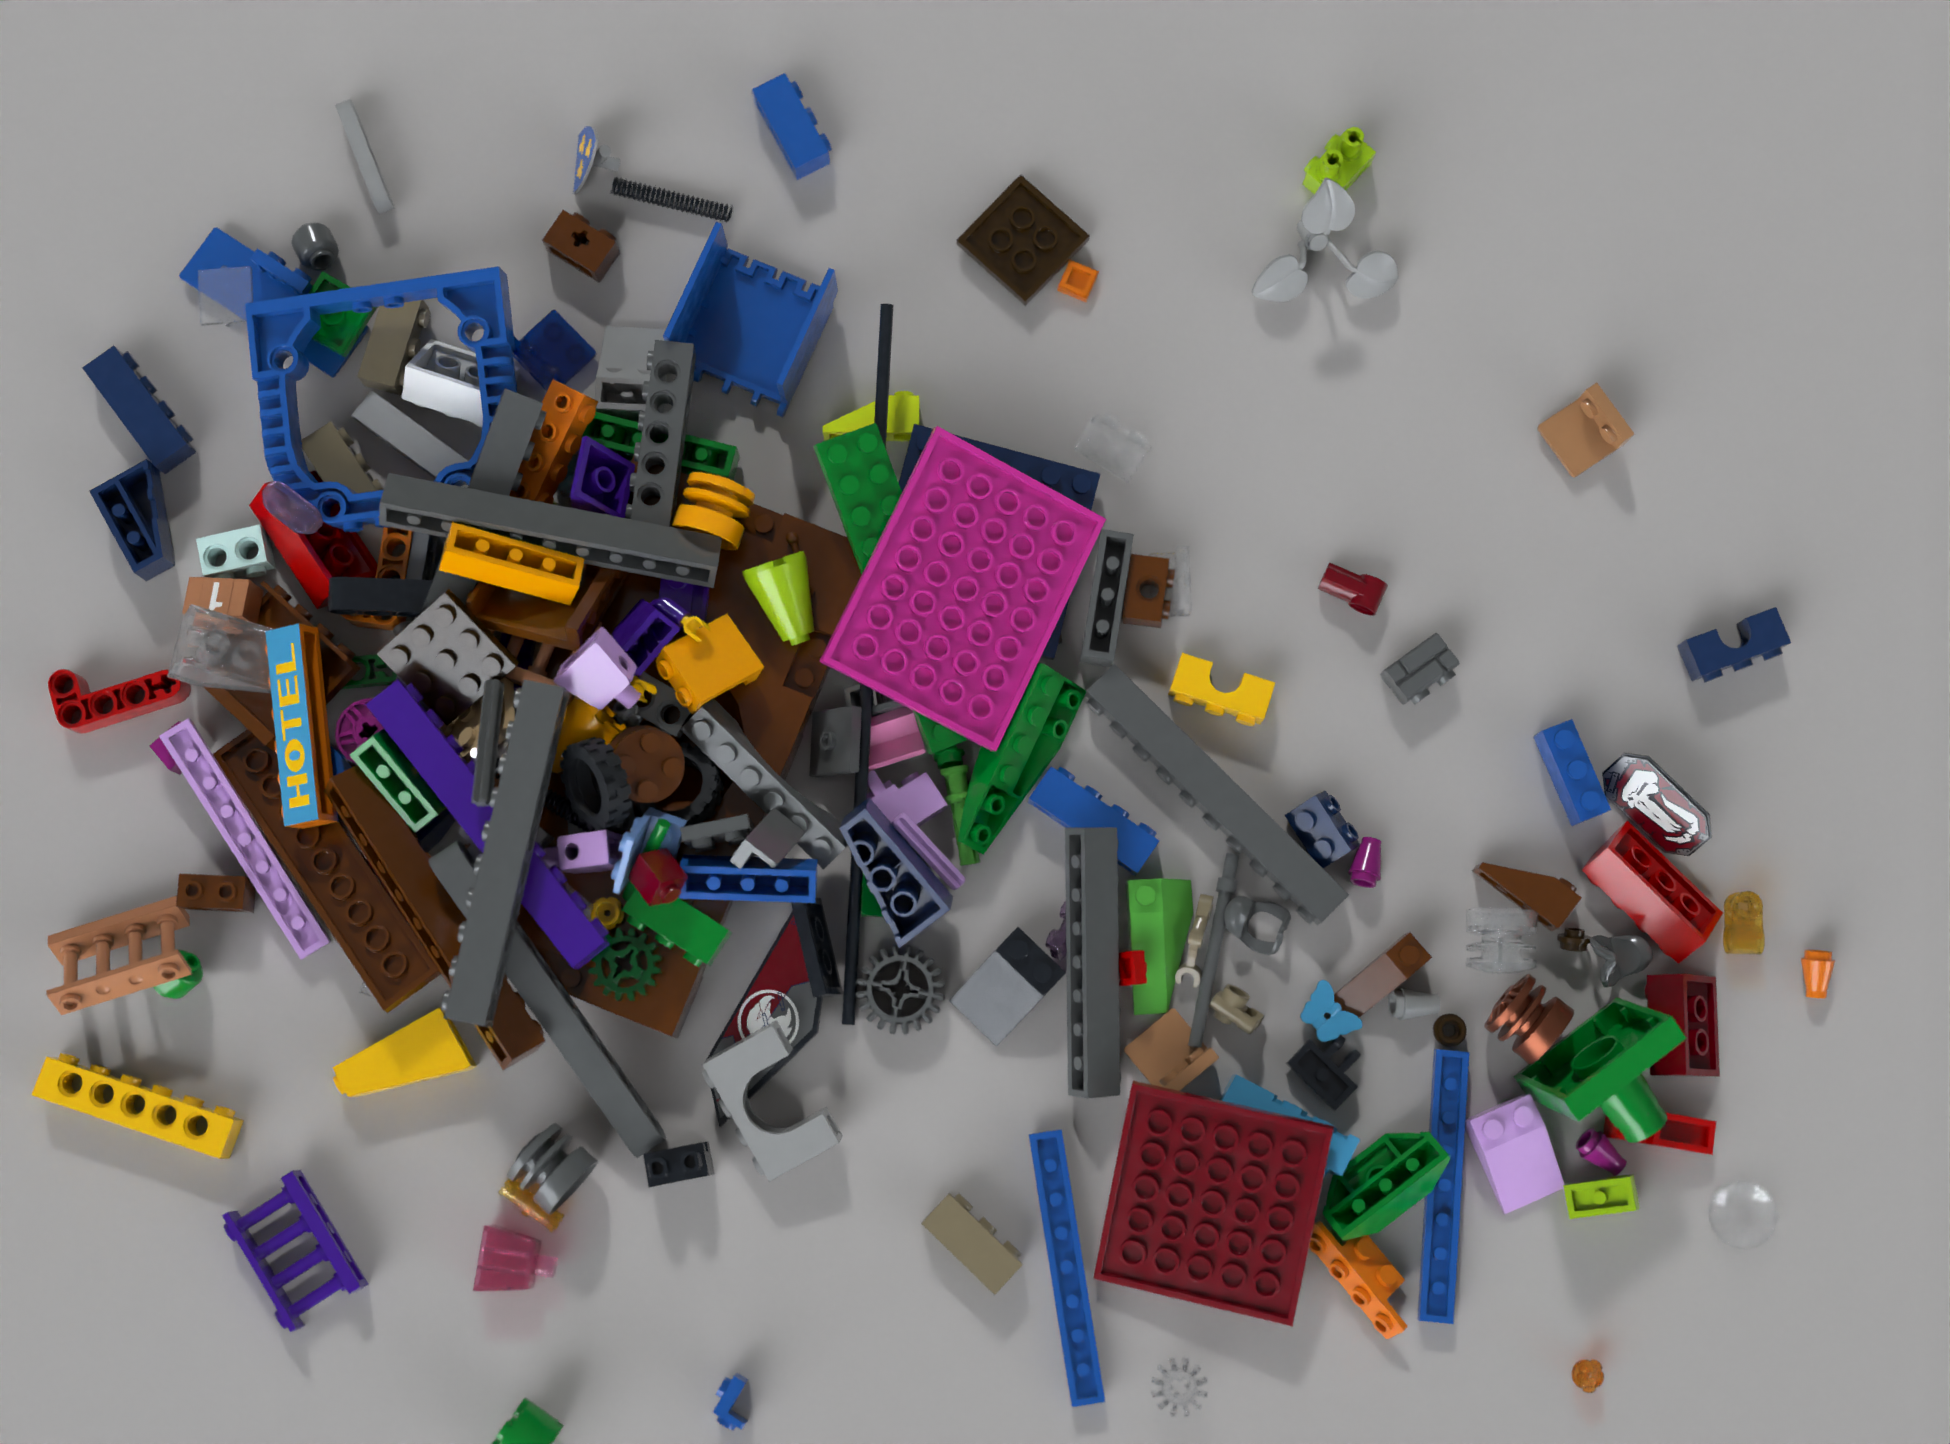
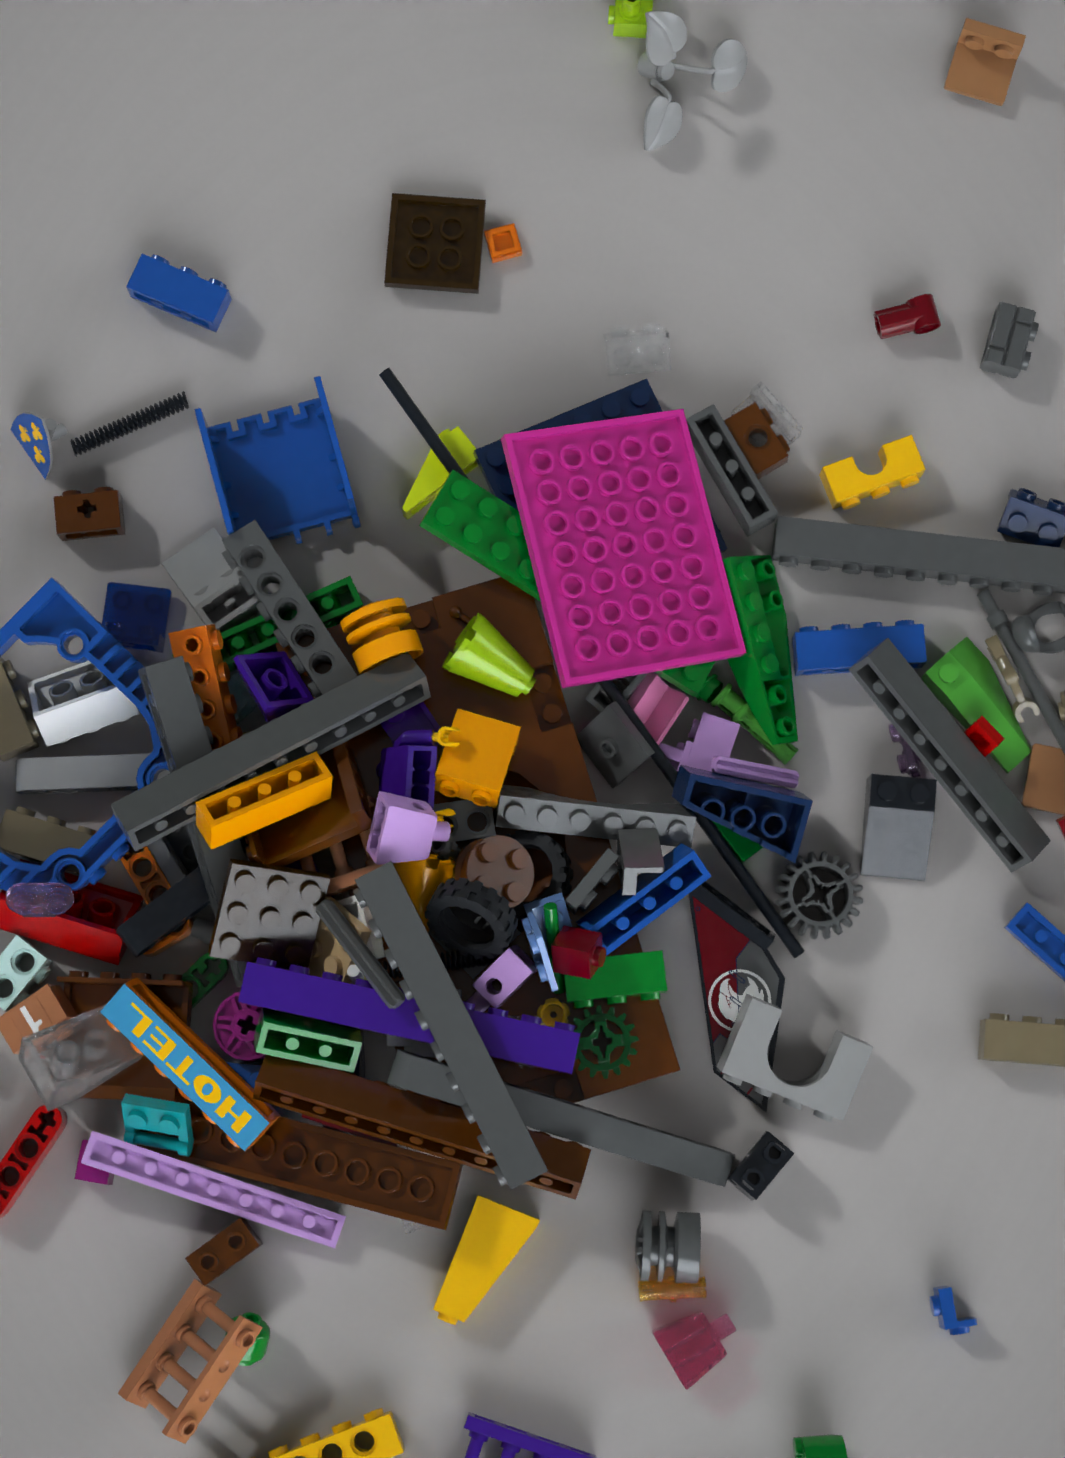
camera: 40 degrees left, 0 degrees up
(247, 748) = (160, 1117): none -> teal plate

